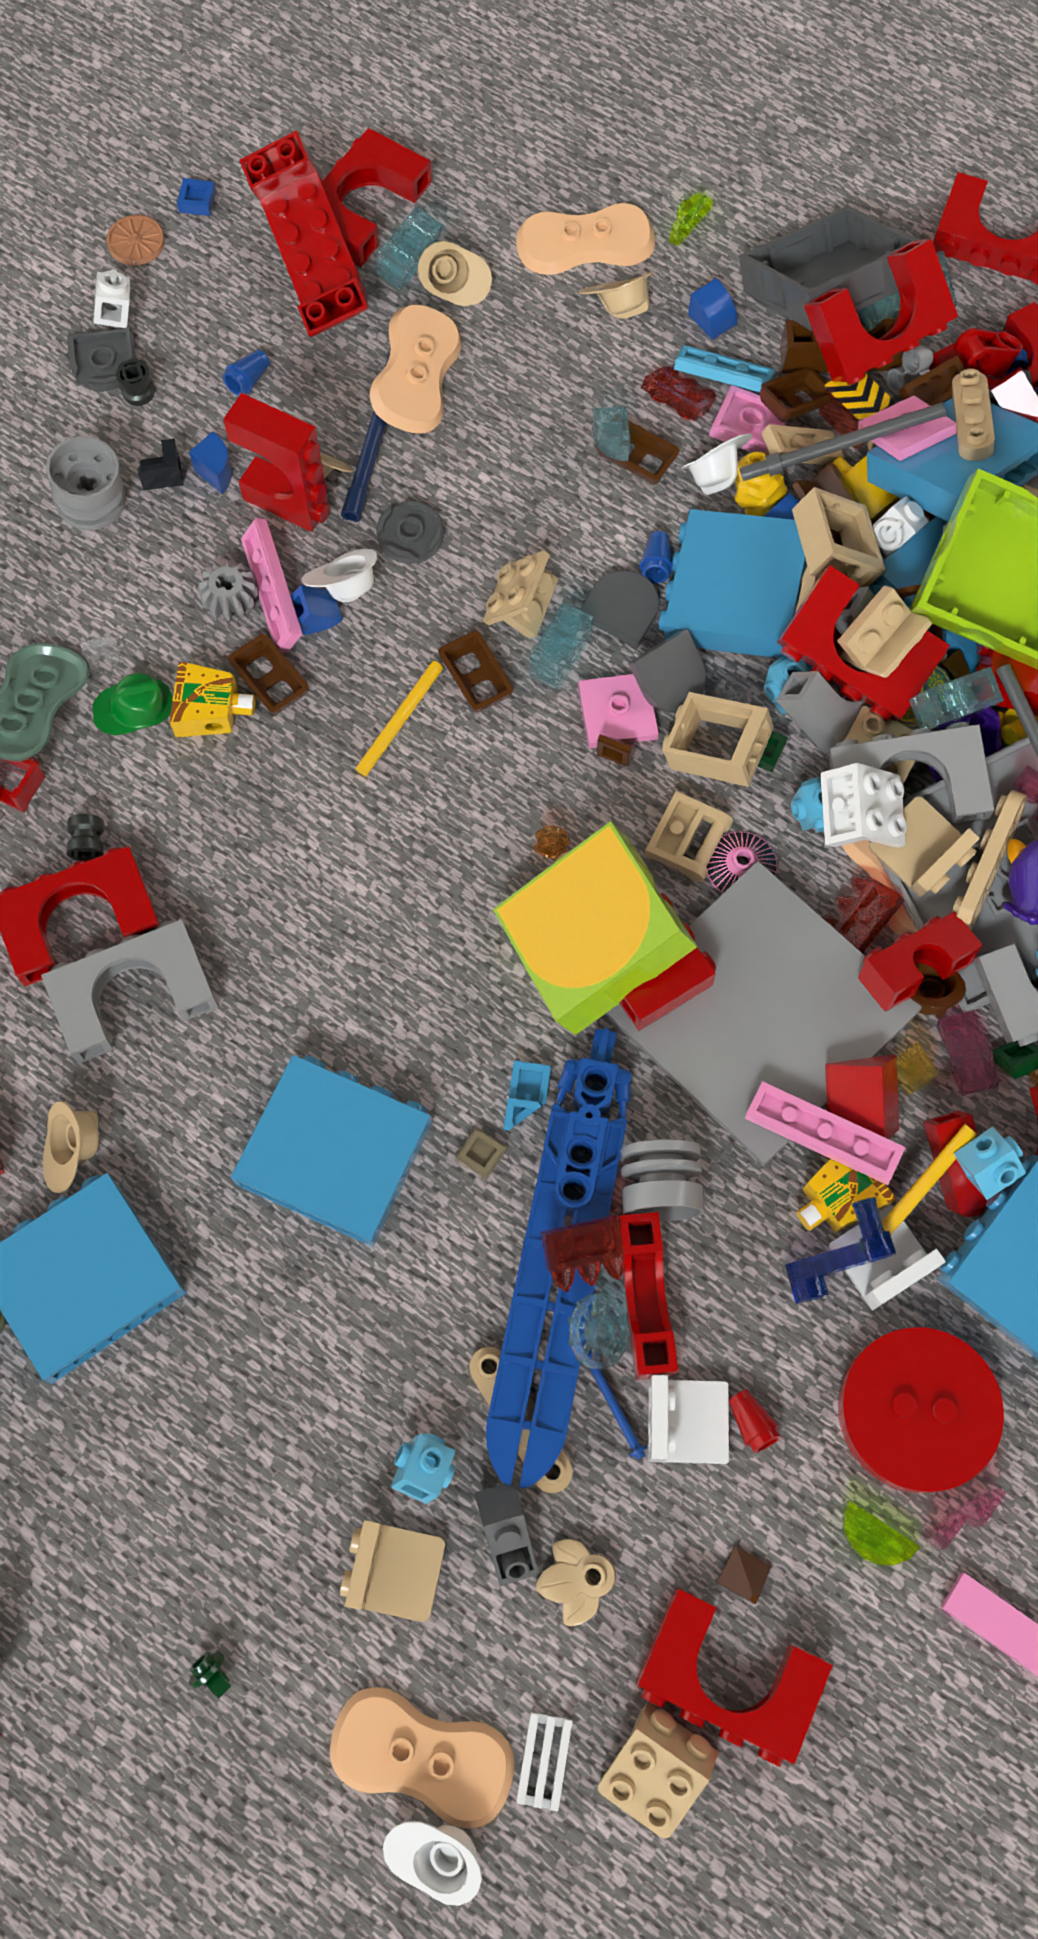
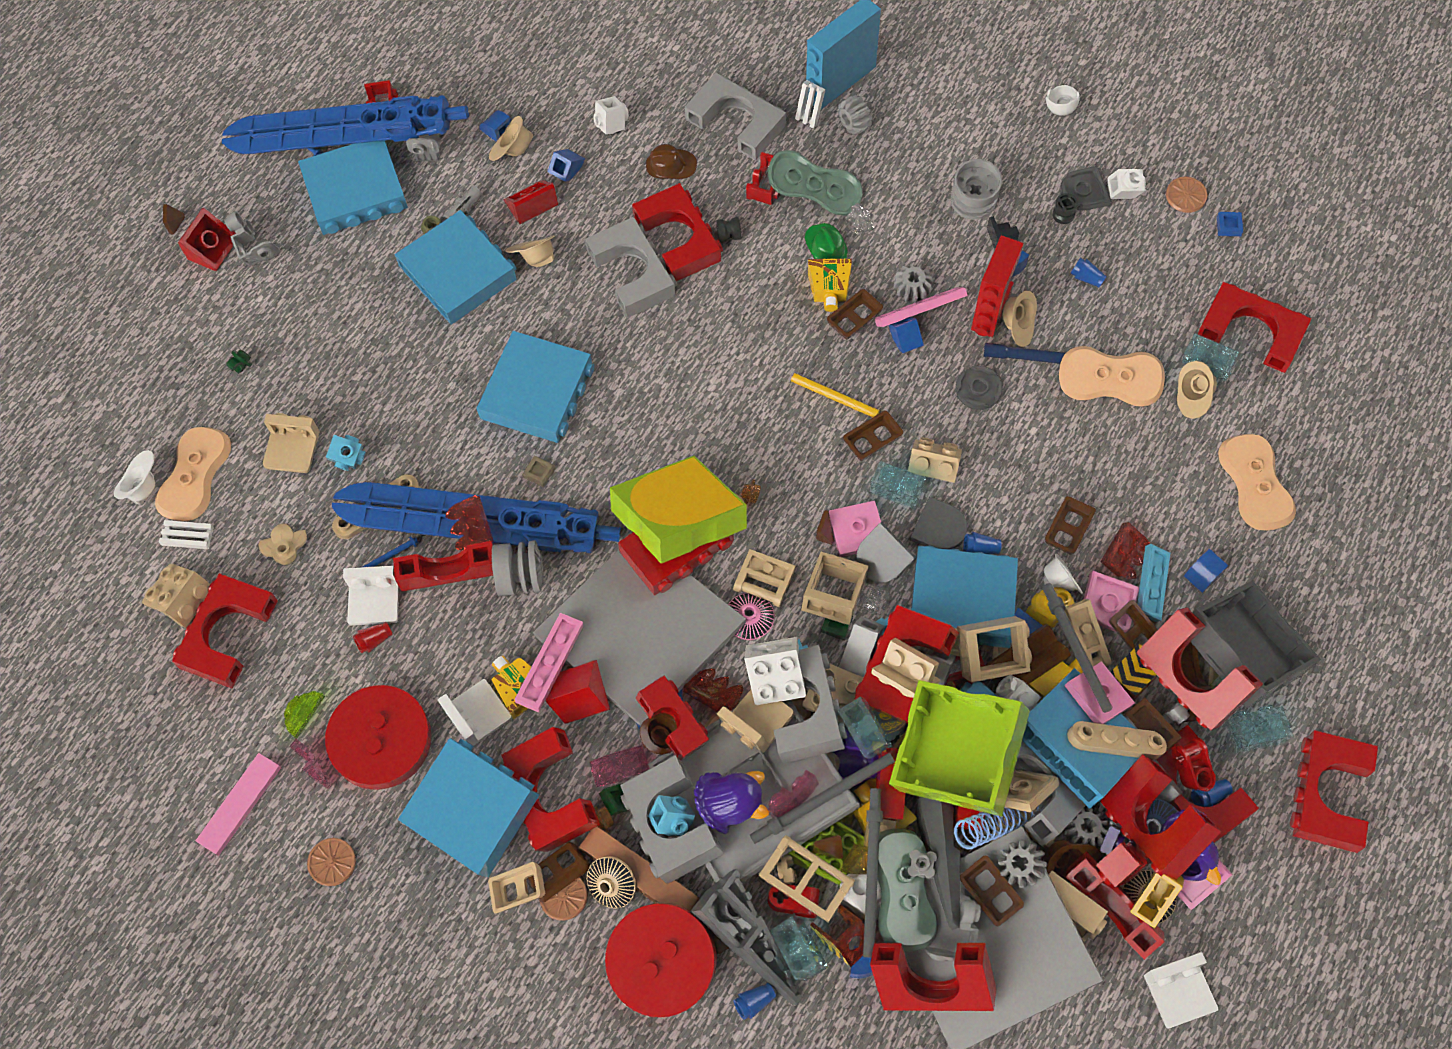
camera: 90 degrees right, 5 degrees down
(306, 233) = (1200, 292): red slope -> none
(345, 576) = (931, 346): white piece -> none
(506, 1533) = (309, 500): dark grey slope -> none
(526, 1092) = (579, 494): dark azure slope -> none
(598, 1331) = (424, 539): clear light blue wheel -> none
(611, 432) = (1074, 502): clear light blue brick -> none
(624, 297) = (1204, 503): tan piece -> none
(689, 215) = (1293, 550): clear neon green plate -> none
(744, 1575) = (282, 638): reddish brown slope -> none
(808, 1274) = (463, 665): clear blue beam -> none
(914, 1069) = (605, 731): clear yellow slope -> none
(927, 1179) = (515, 724): yellow bar -> none
(991, 1162) = (525, 758): medium azure brick -> none
(994, 844) = (745, 761): tan plate -> none

